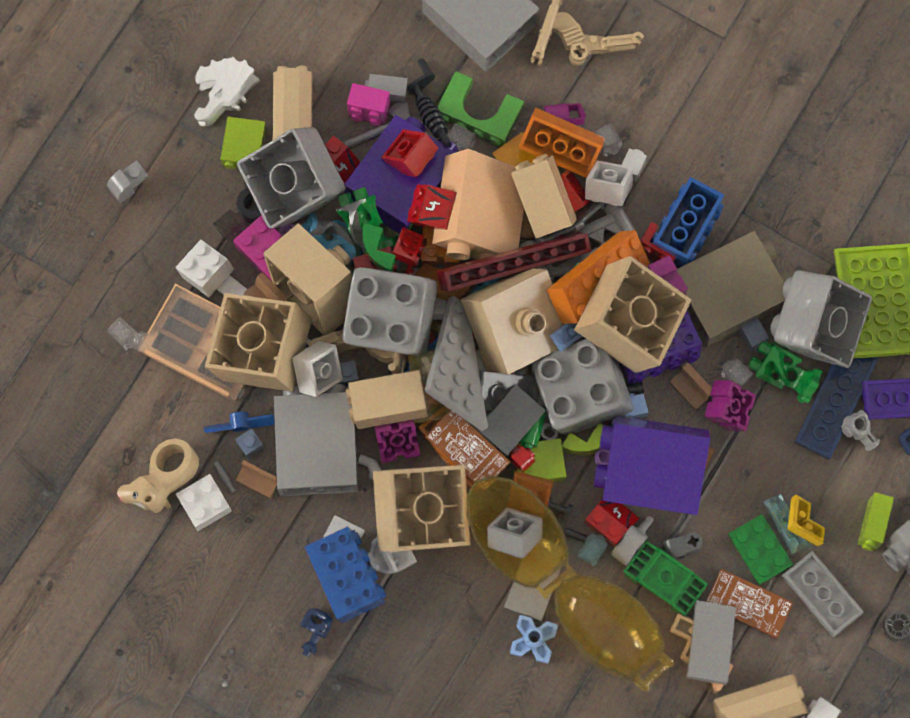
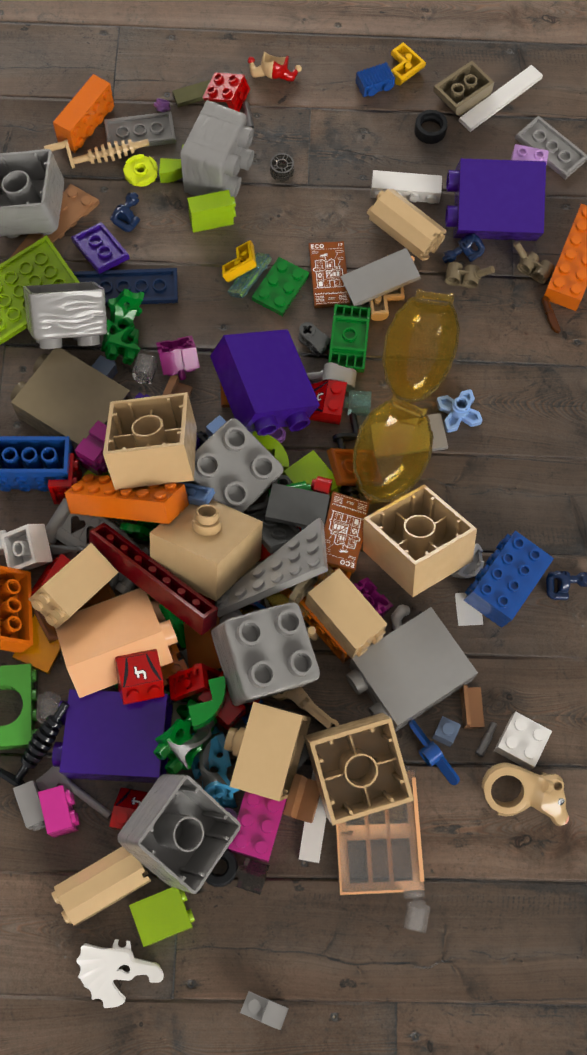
camera: 125 degrees left, 5 degrees down
(204, 268) = (309, 874): white brick -> none
(317, 368) = (350, 699): white brick -> none
(349, 373) = (331, 681): sand blue brick -> none
(410, 152) = (93, 731): red slope -> none
(514, 532) = (392, 453): light grey brick -> none
(822, 594) = (288, 228): light grey tile -> none
(861, 431) = (140, 257): light grey connector -> none

